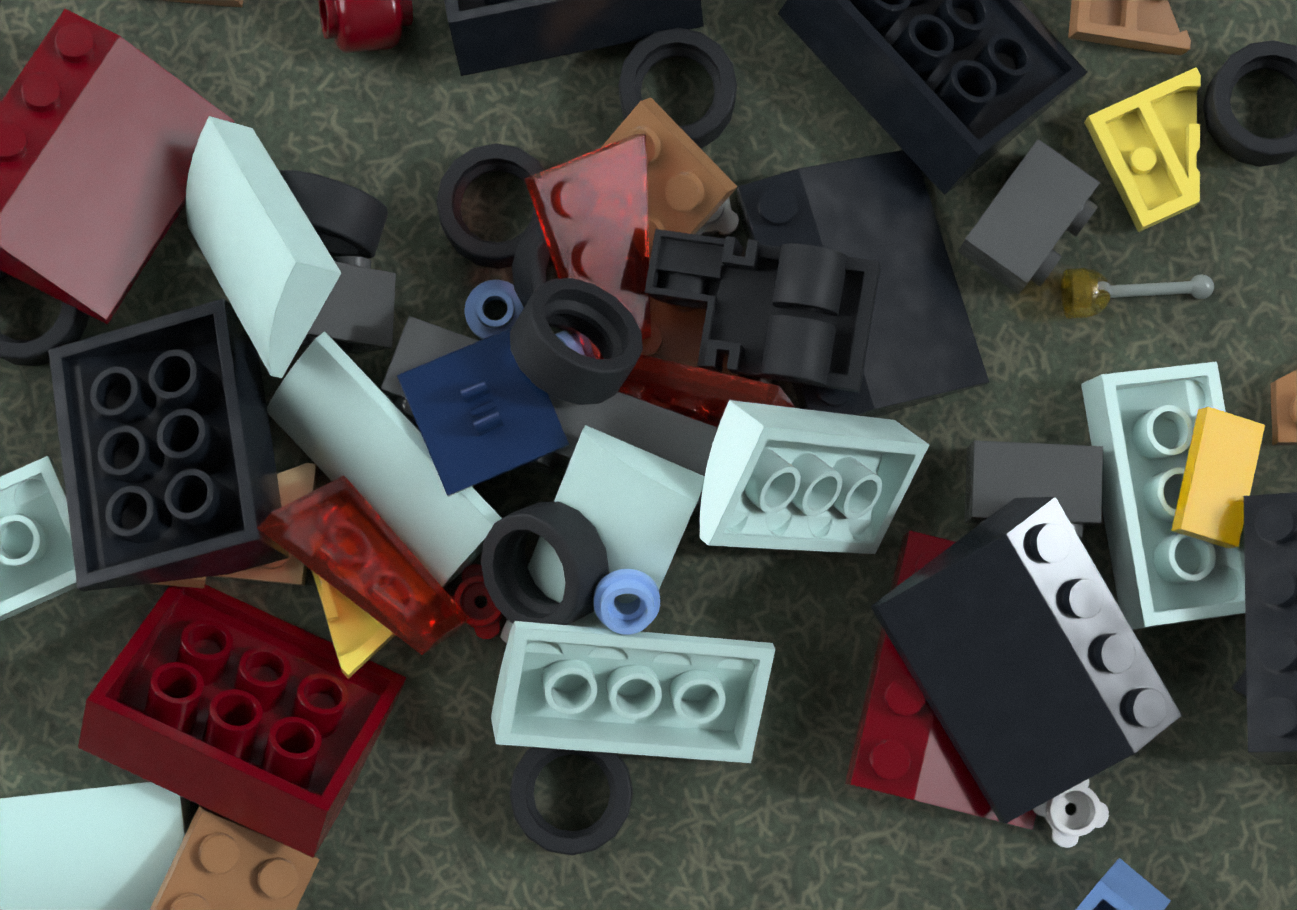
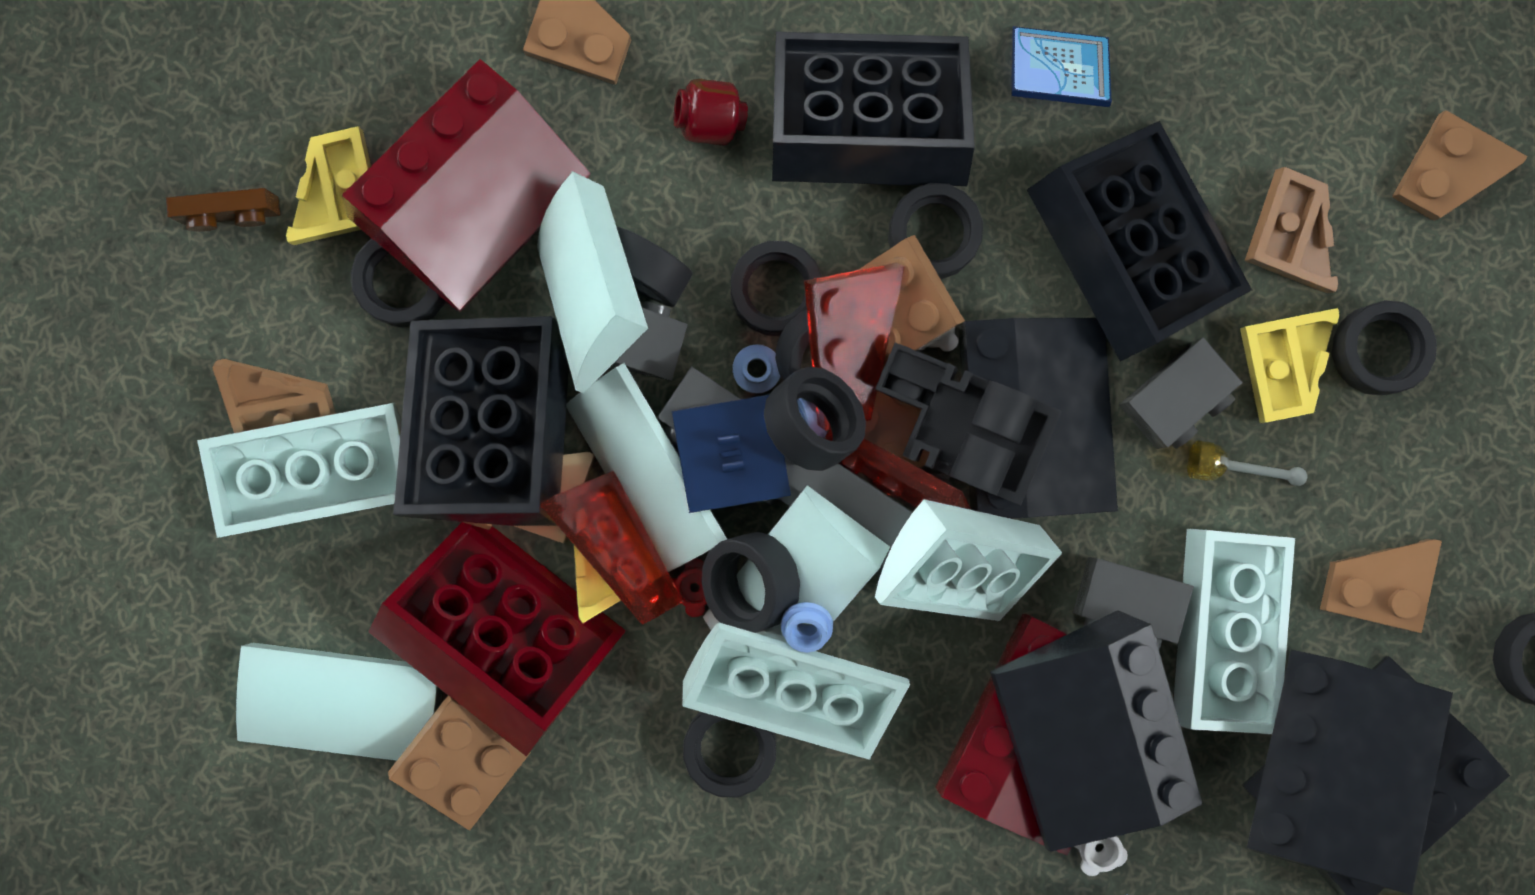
camera: 10 degrees right, 5 degrees up
(1217, 477) = (1274, 628): yellow tile -> none

